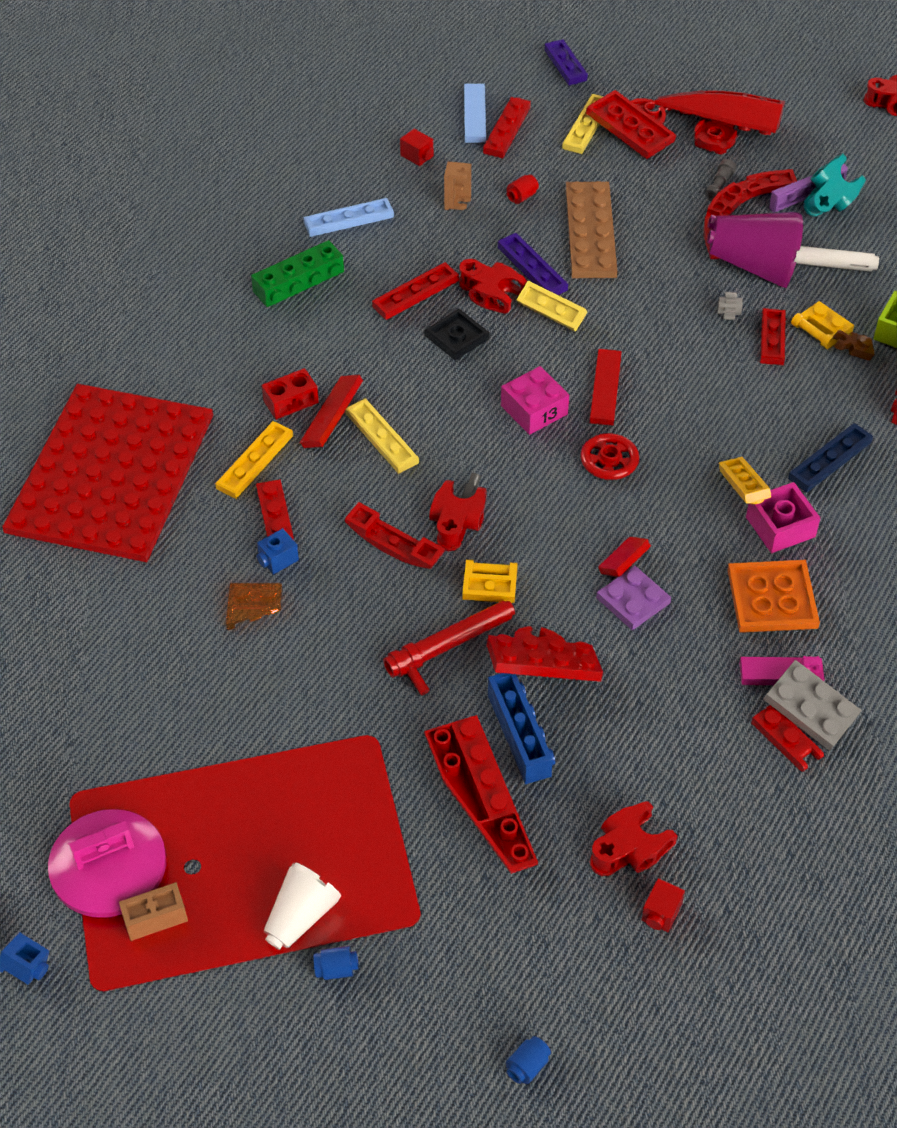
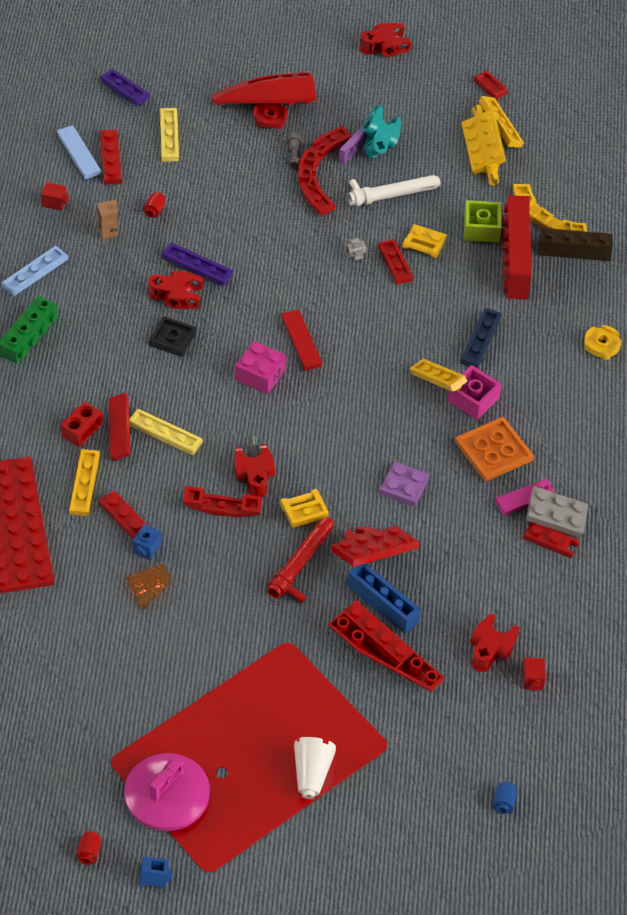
camera: 30 degrees left, 0 degrees up
(153, 911) = (219, 808): medium nougat hinge -> none
(335, 963) = (354, 791): blue brick -> none
(415, 291) = (123, 313): red plate -> none
(551, 306) = (230, 291): light yellow plate -> none
(591, 230) = (221, 221): medium nougat plate -> none
(609, 456) = (334, 390): red plate -> none
(624, 556) = (384, 457): red tile -> none
(633, 122) = (206, 123): red plate -> none
(758, 243) = (352, 193): magenta cone -> none
(857, 344) = (456, 248): reddish brown plate -> none

